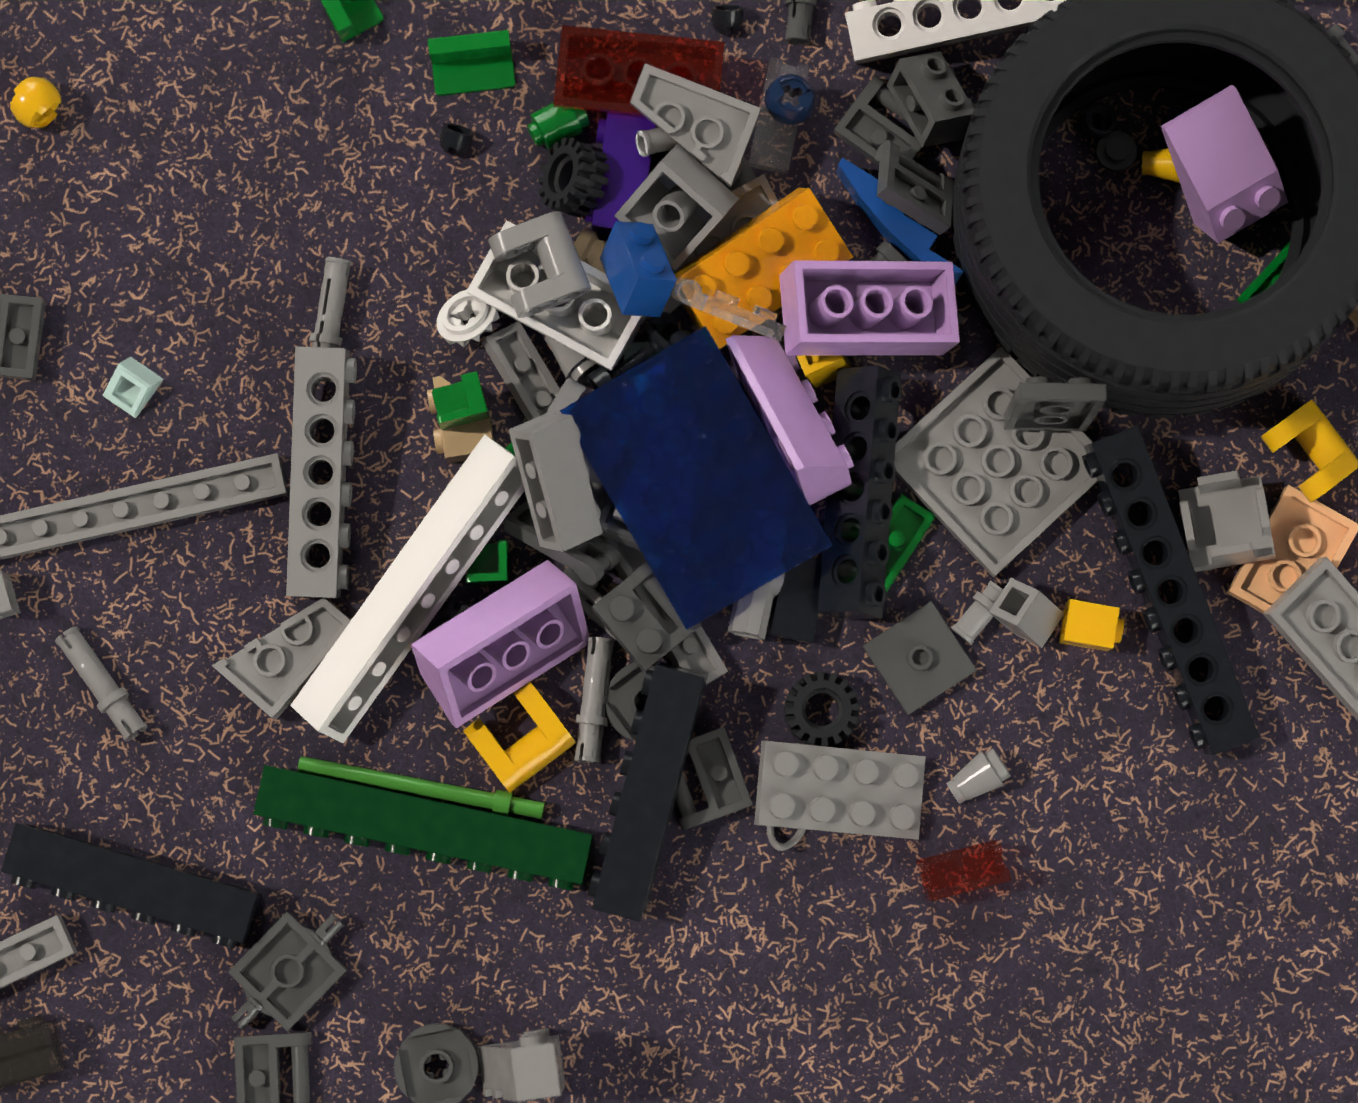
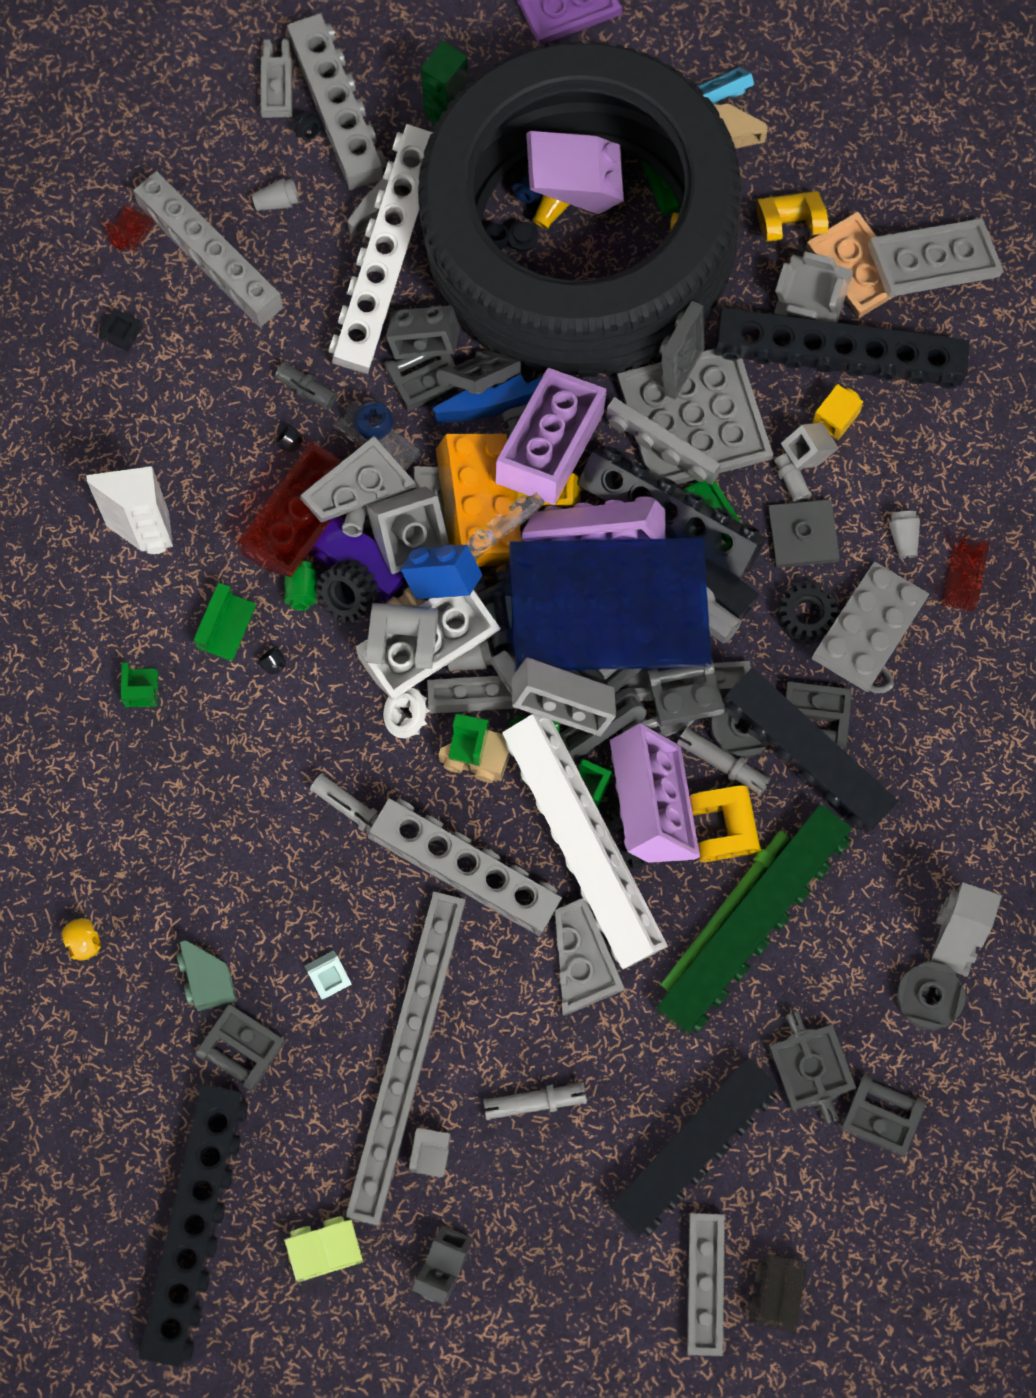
camera: 60 degrees left, 10 degrees down
(61, 258) = (208, 978): none -> sand green slope
(934, 457) = (671, 447): none -> light grey plate

